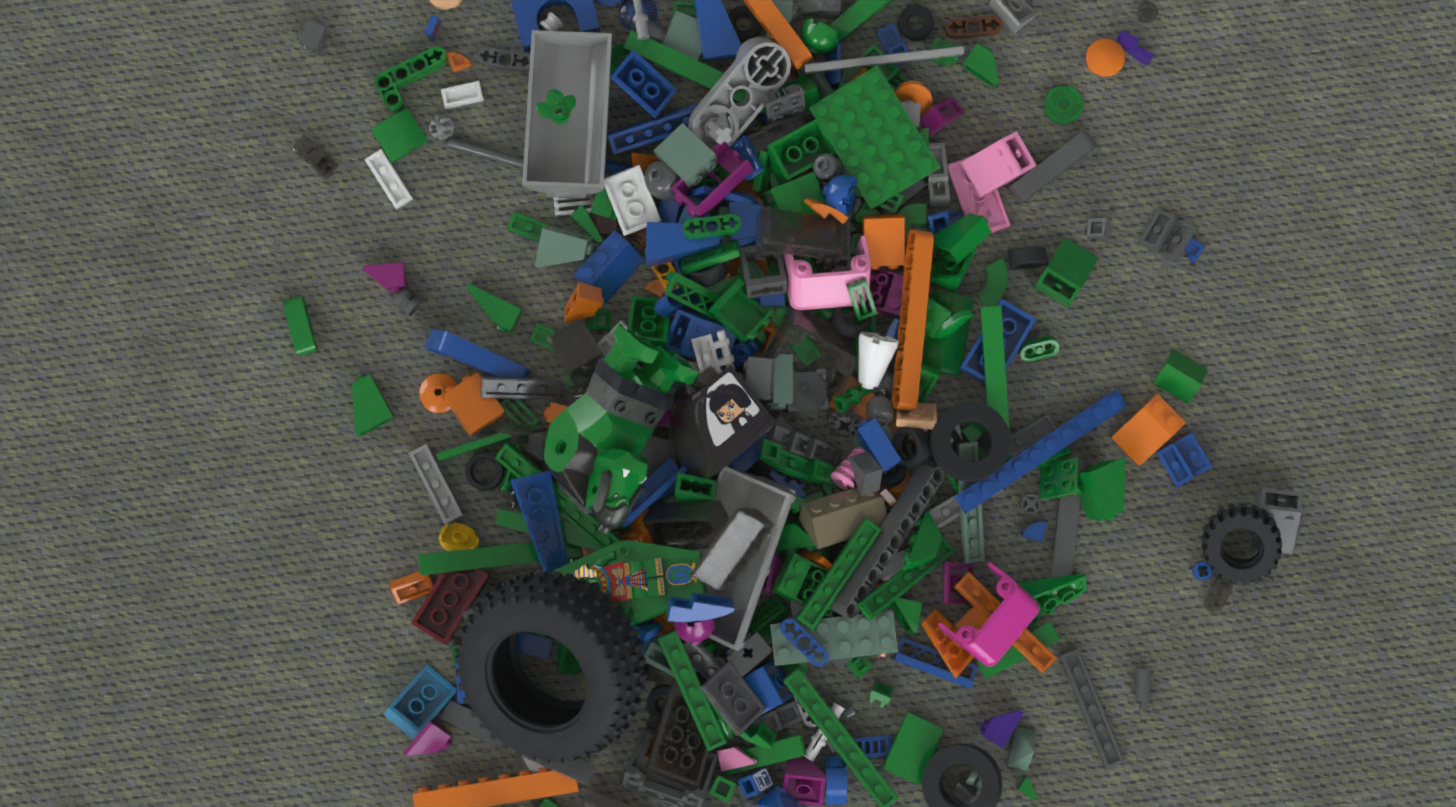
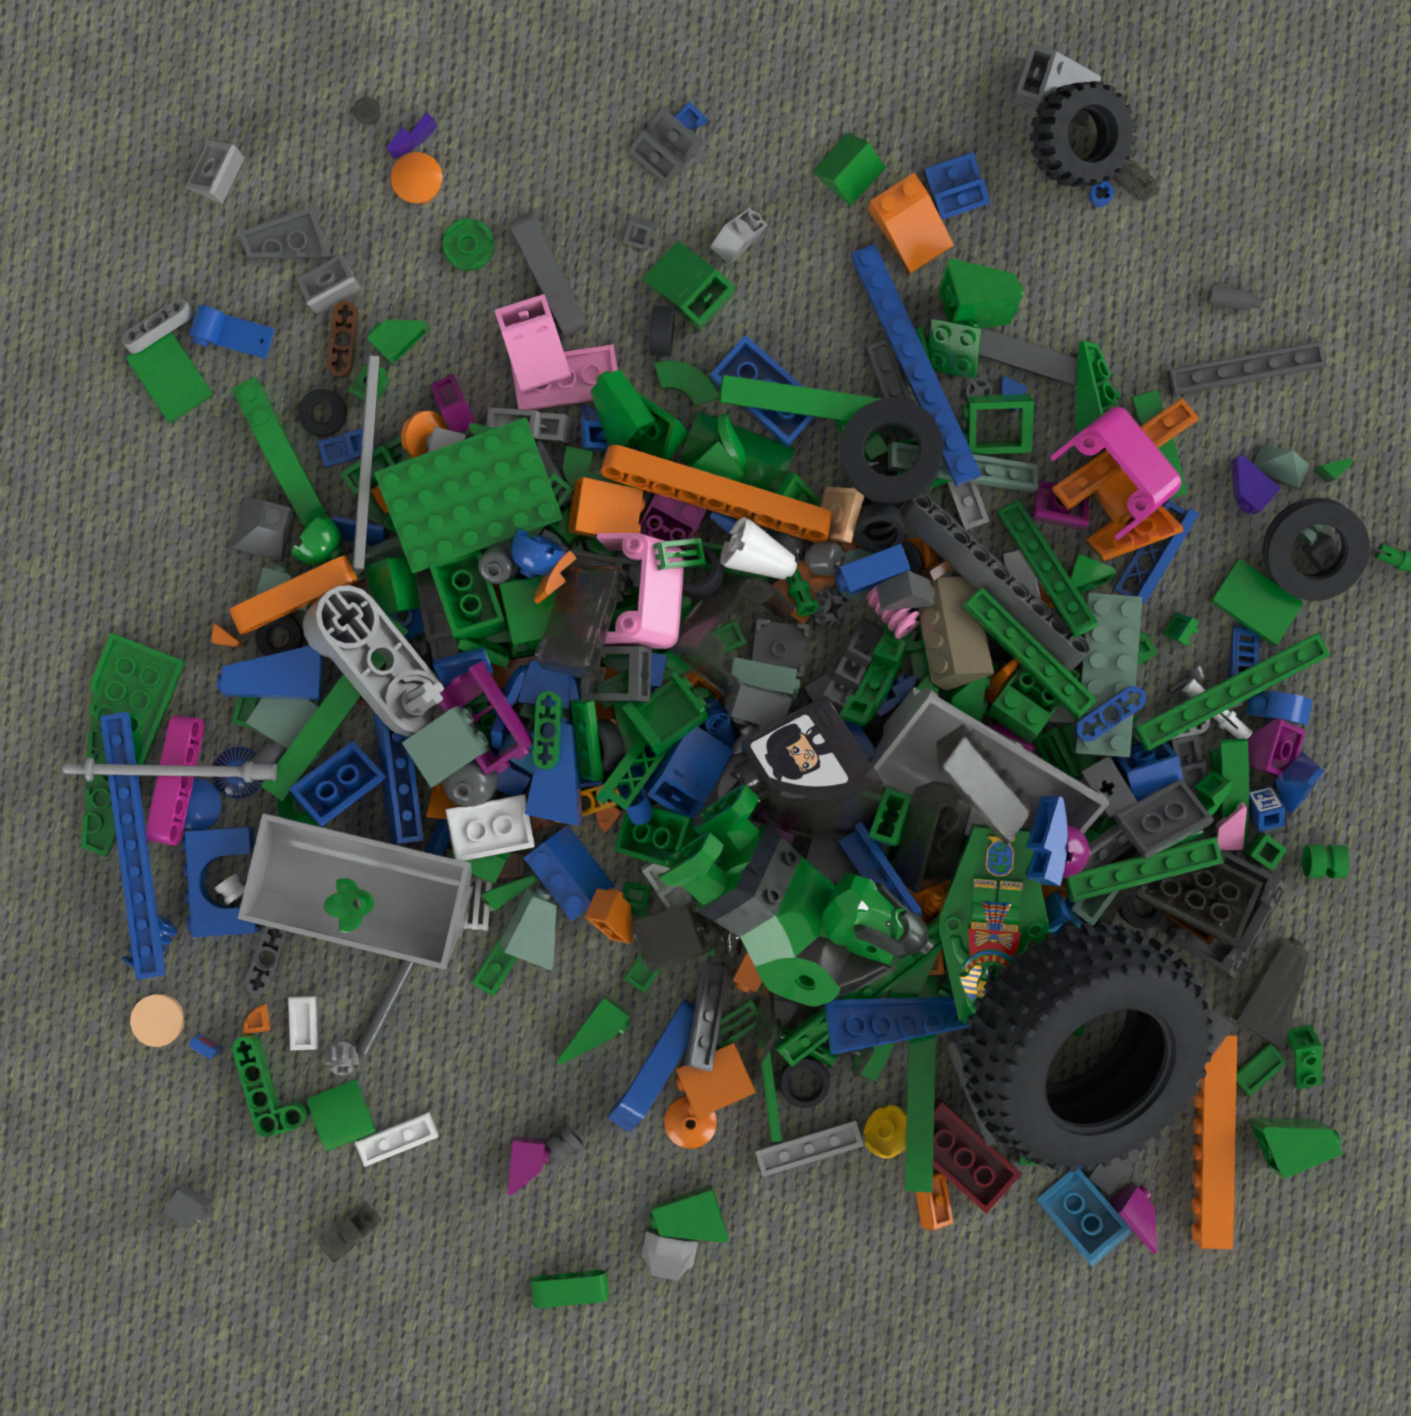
camera: 85 degrees left, 5 degrees up
(337, 394) = (668, 1255): none -> light grey slope
(705, 351) = (716, 768): white plate -> none
(785, 106) = (405, 604): dark grey hinge -> none
(923, 543) = (1005, 537): green slope -> none
(1025, 520) = (1025, 422): none -> green window
(1038, 349) = (781, 340): green plate -> none
(1111, 302) = (738, 235): none -> light grey slope

